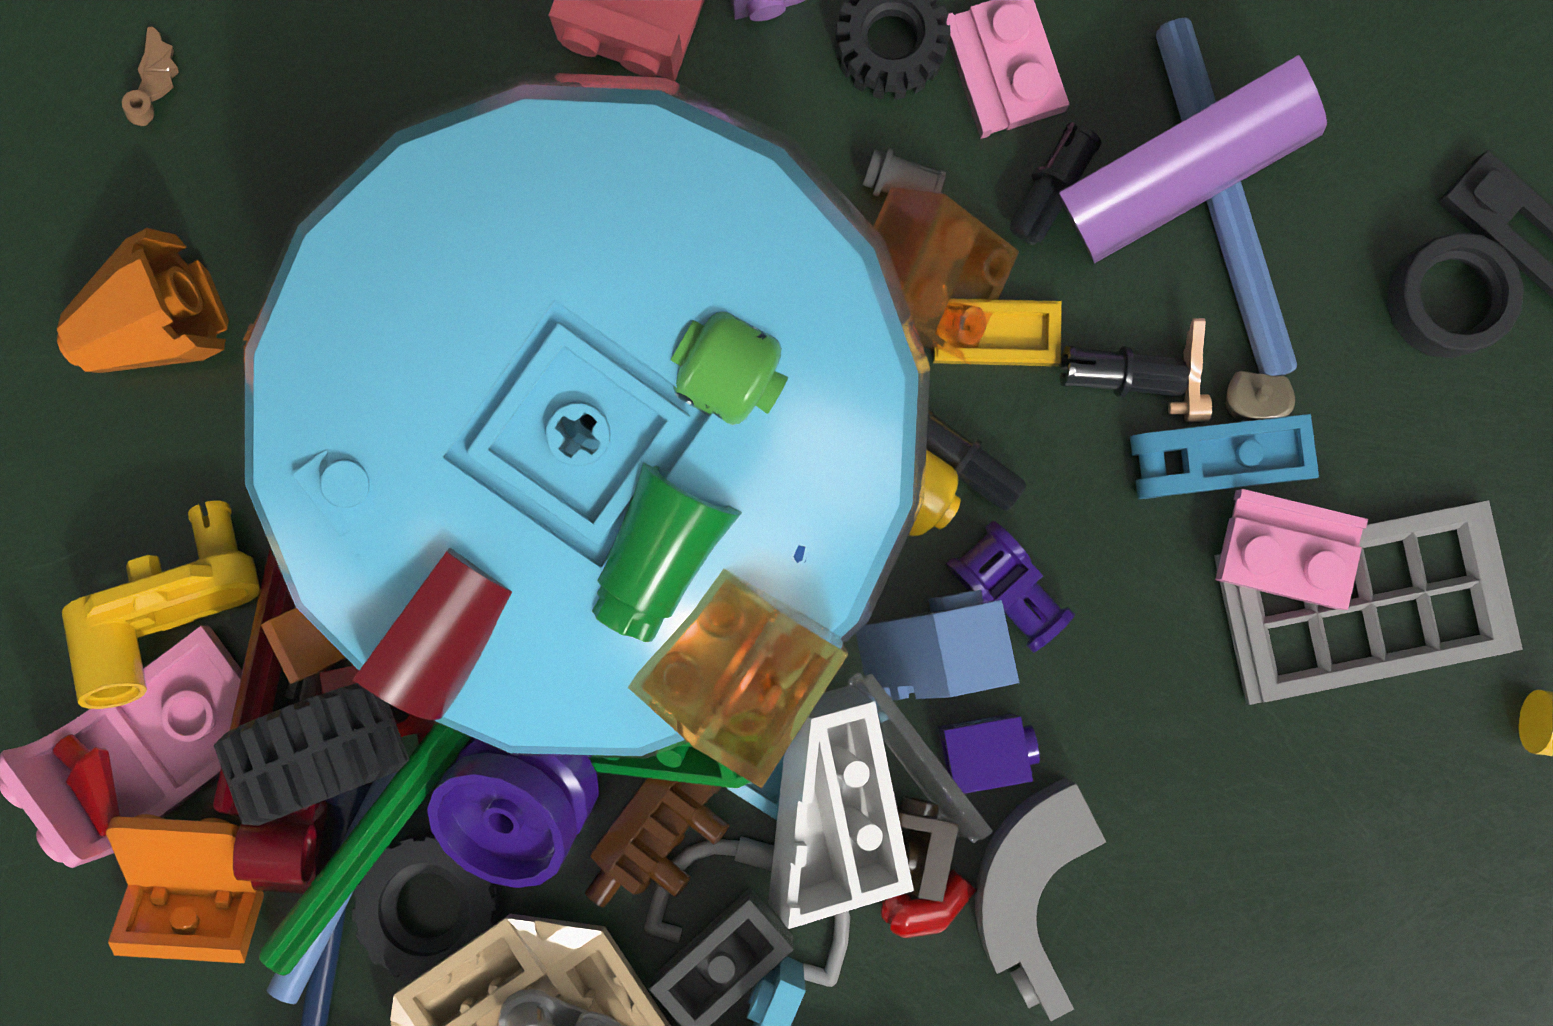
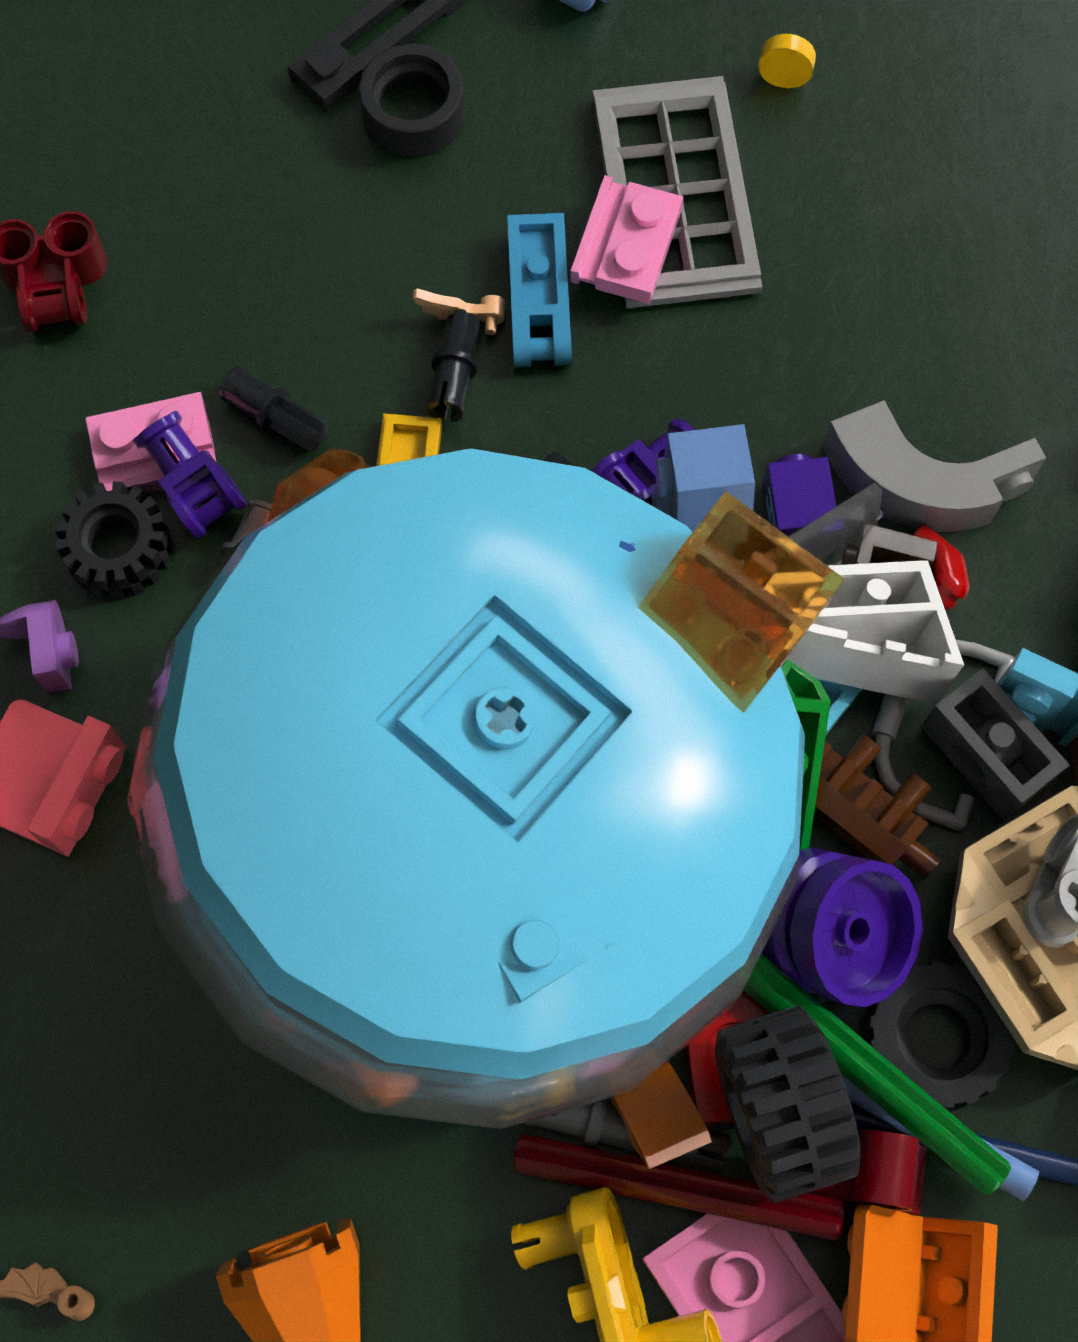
camera: 85 degrees left, 15 degrees down
(436, 639) = (690, 876): dark red brick -> none
(657, 555) = (620, 659): green plant -> none
(728, 368) = (454, 577): bright green head -> none
(963, 105) = (191, 478): none -> dark purple connector
(1196, 159) = (272, 281): medium lavender brick -> none
(1230, 211) = (302, 272): medium blue axle -> none
(1259, 396) = (487, 258): dark tan piece -> none

